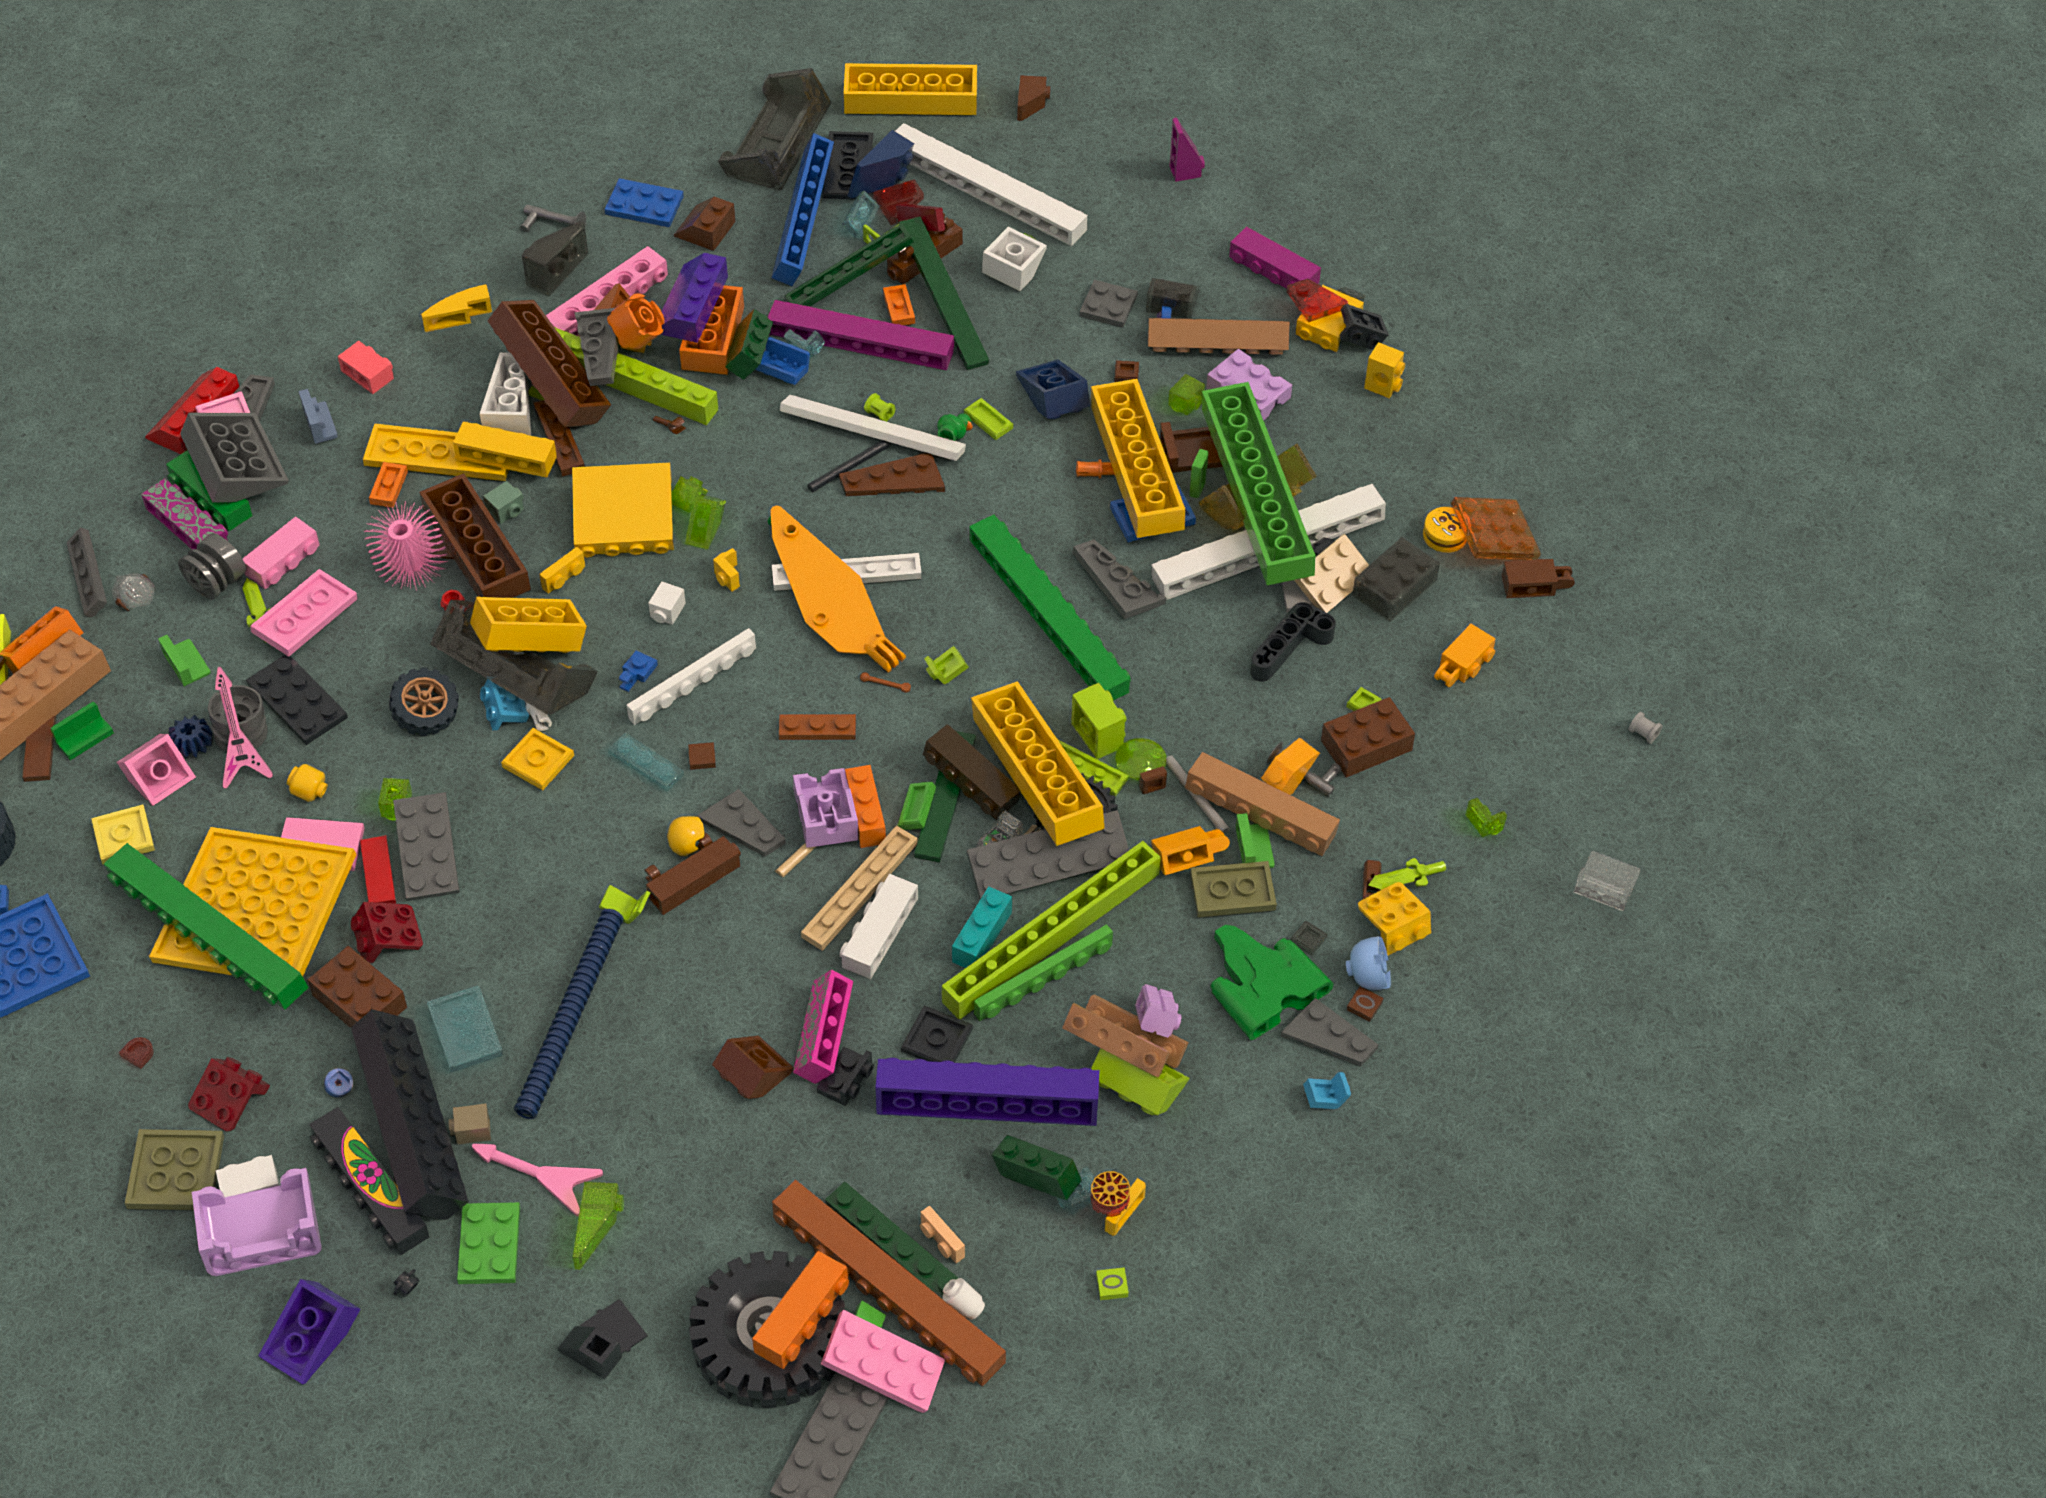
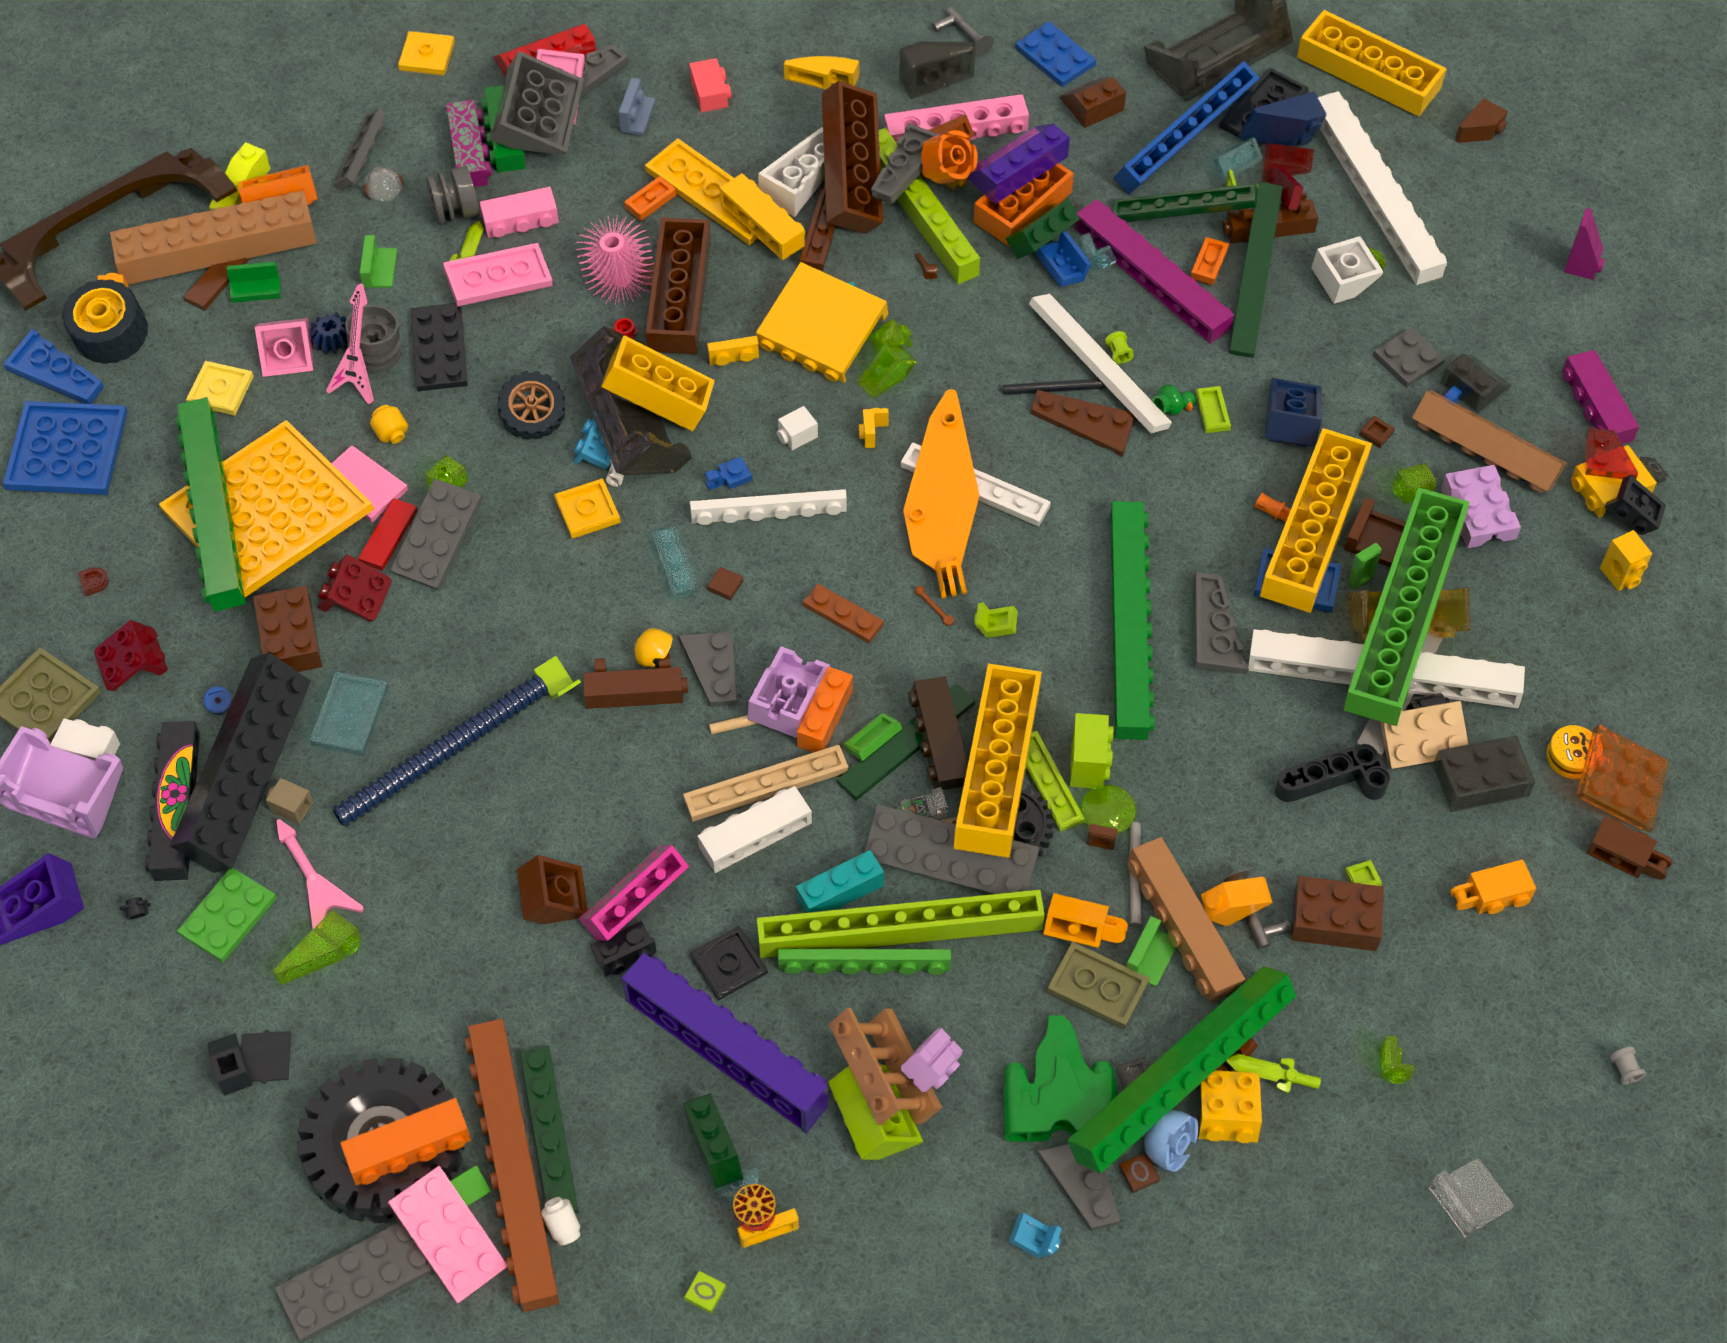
camera: 35 degrees right, 5 degrees up
(79, 463) = (426, 53): none -> yellow plate
(504, 502) = (731, 263): sand green brick -> none
(947, 1241) = (590, 1161): light nougat plate -> none
(1345, 908) = (1181, 1069): none -> green brick

